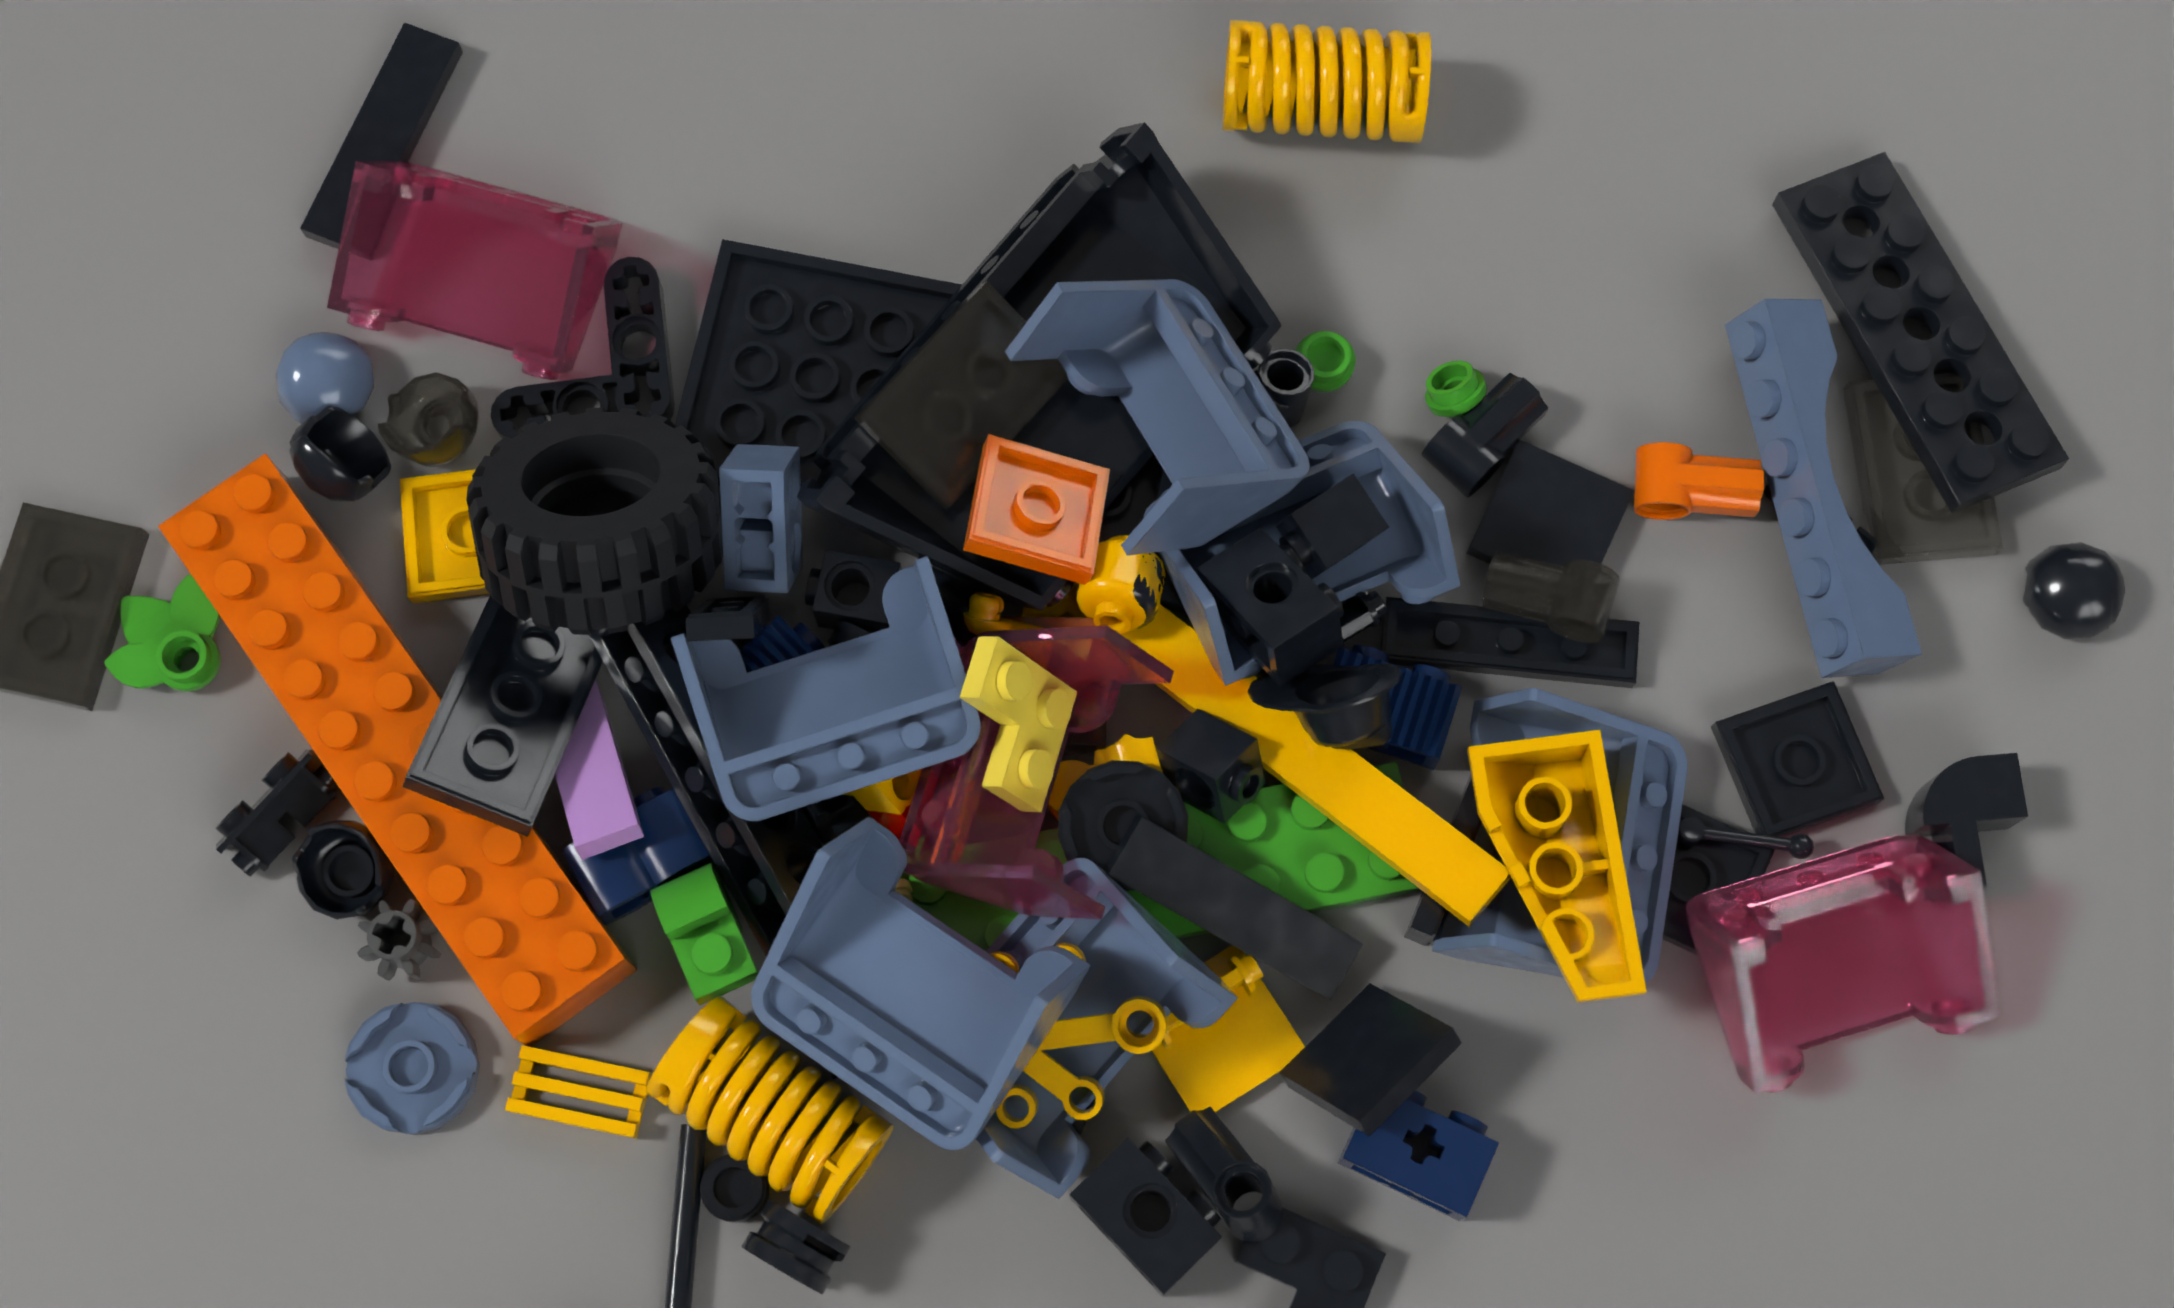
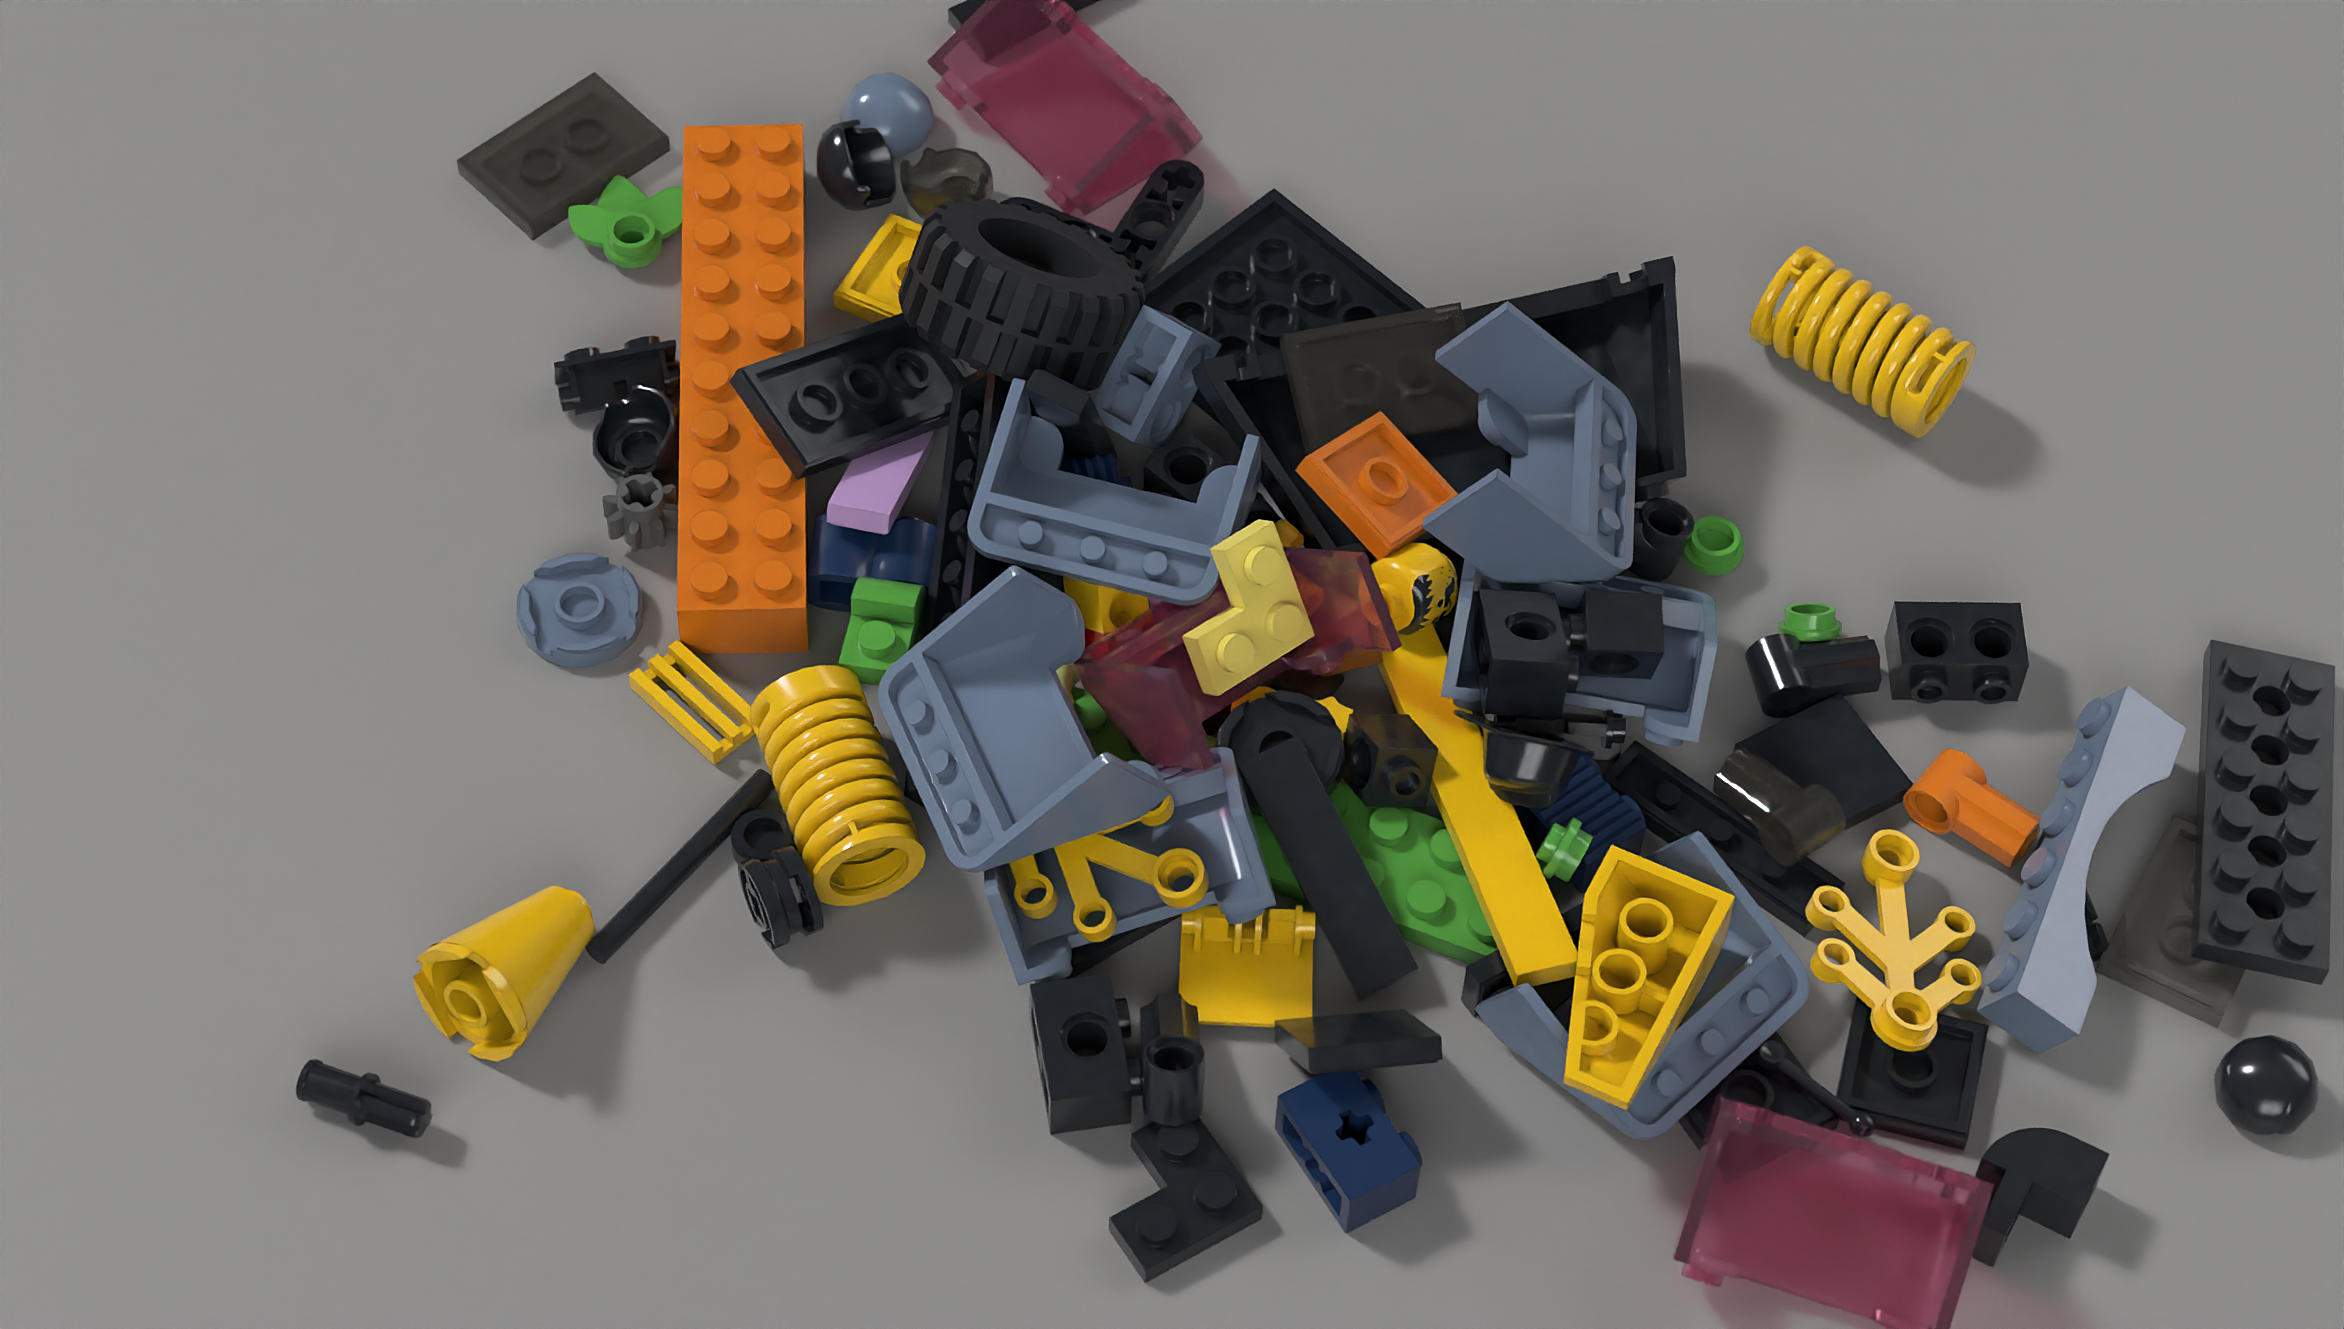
camera: 30 degrees right, 20 degrees down
(1423, 767) = (1563, 849): none -> bright green plate
(1579, 330) = (1970, 650): none -> black brick
(1722, 665) = (1899, 1011): none -> yellow plant

